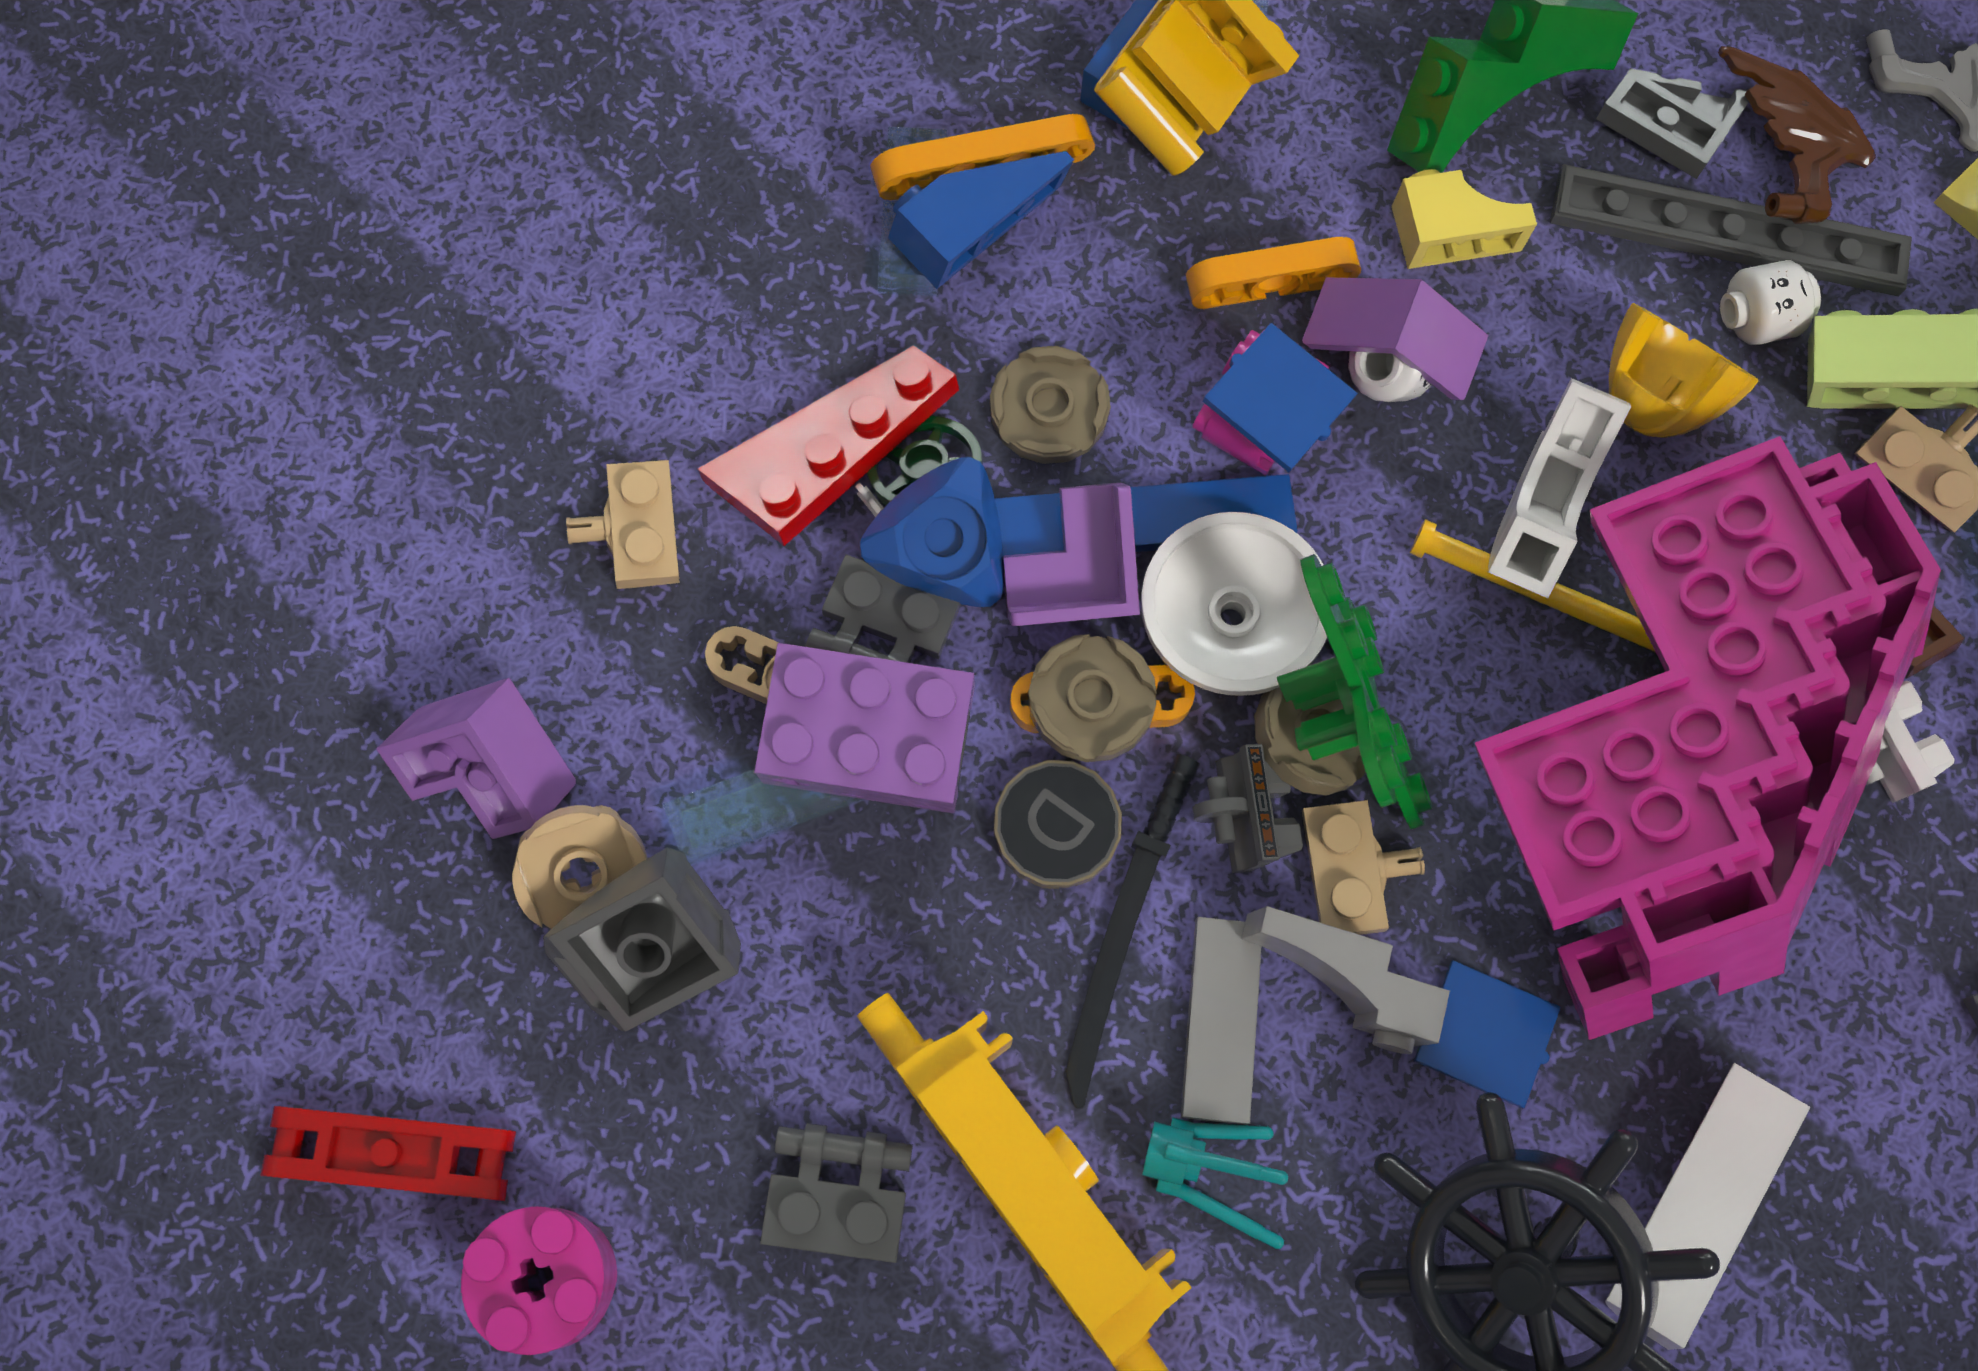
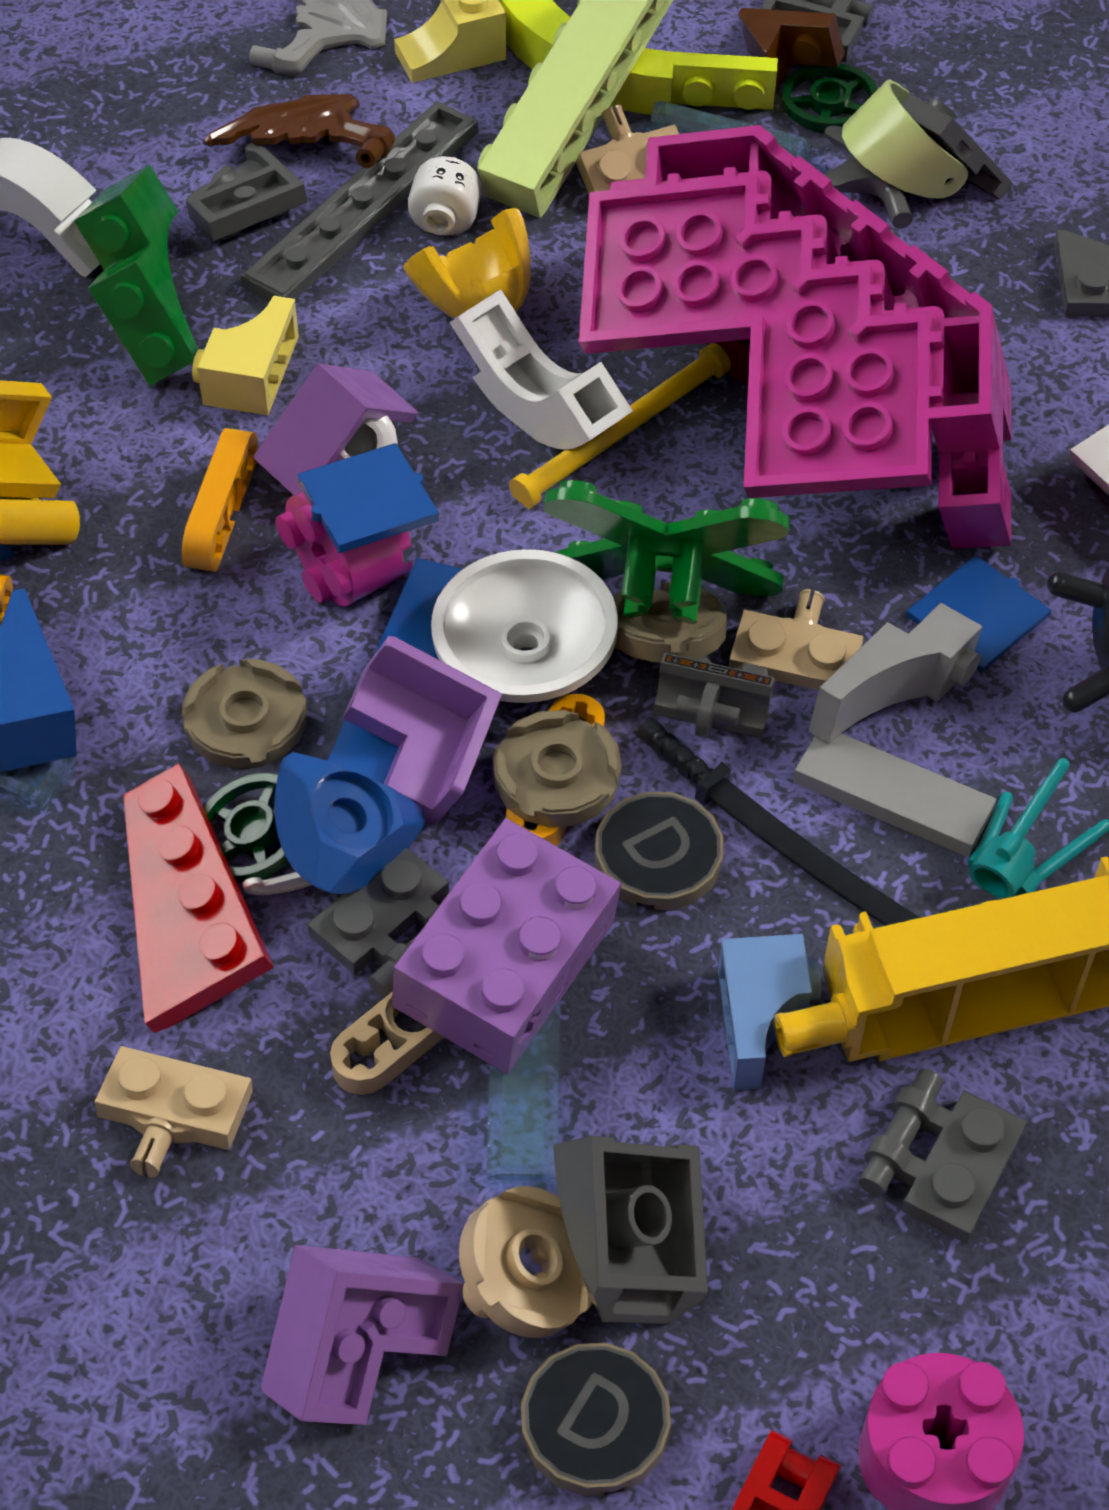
camera: 65 degrees left, 20 degrees down
(479, 980) = (595, 1419): none -> black tile
(926, 971) = (755, 983): none -> medium blue arch

